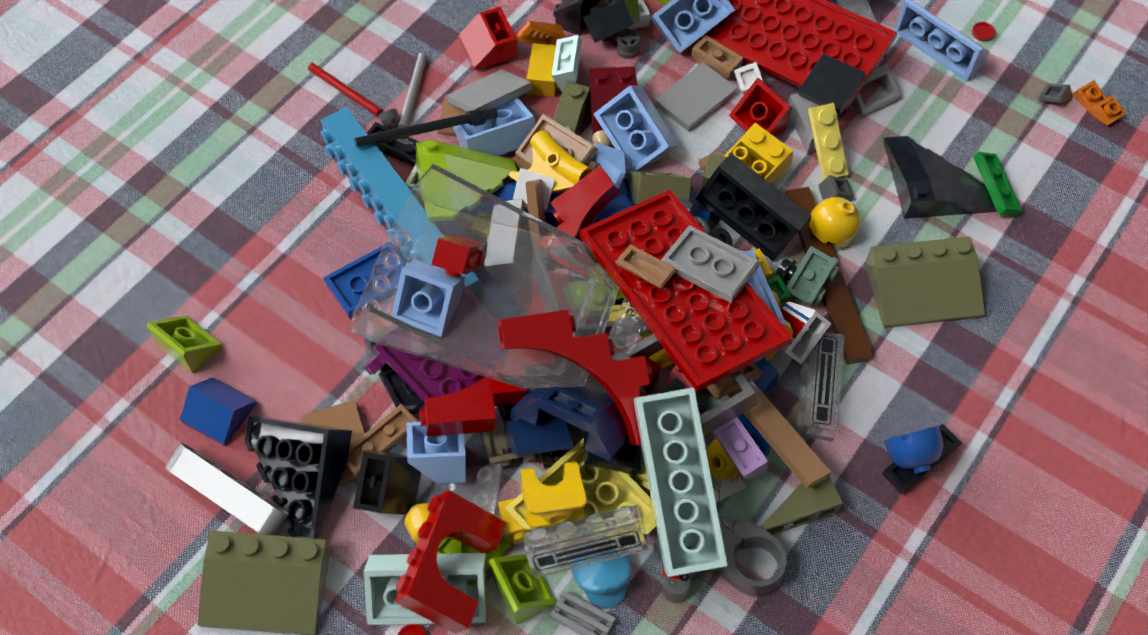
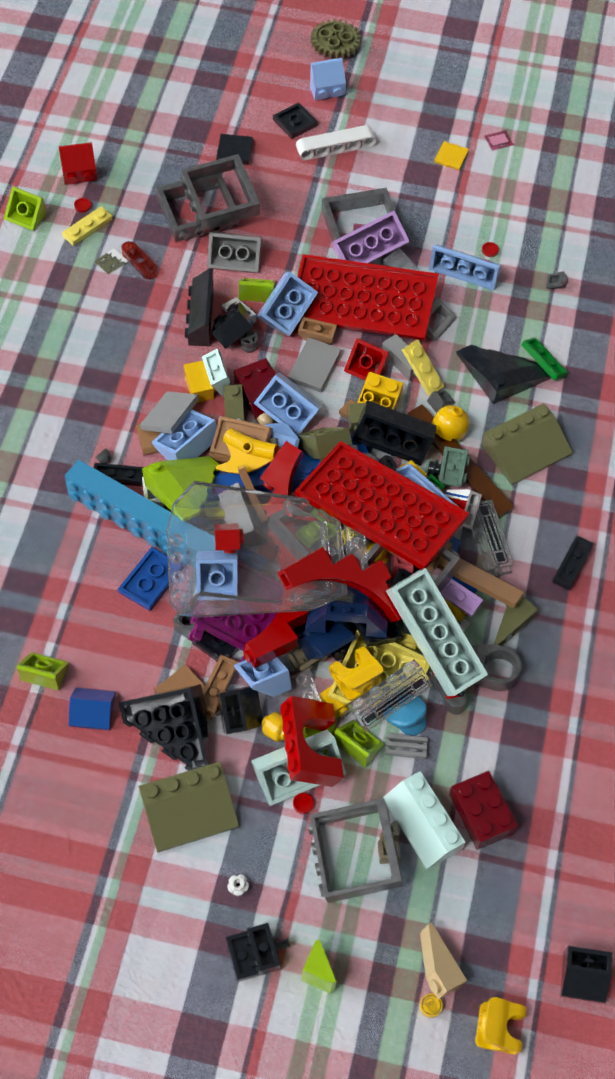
camera: 25 degrees left, 0 degrees up
(226, 490) = (130, 757): beam -> none
(344, 89) = (58, 446): red bar -> none
(412, 91) = (109, 430): light grey bar -> none
(471, 117) = (169, 436): black bar -> none
(489, 39) = (148, 372): red slope -> none
(526, 175) = (232, 471): white sticker -> none
(546, 33) = (187, 355): orange slope -> none
(645, 266) = (353, 500): medium nougat tile -> none
(711, 263) = (393, 483): light grey tile -> none
(746, 76) = (346, 338): white plate -> none
(831, 83) = (408, 325): black tile -> none
(916, 449) = (569, 557): blue cylinder -> none
(1097, 104) = (587, 279): orange slope -> none

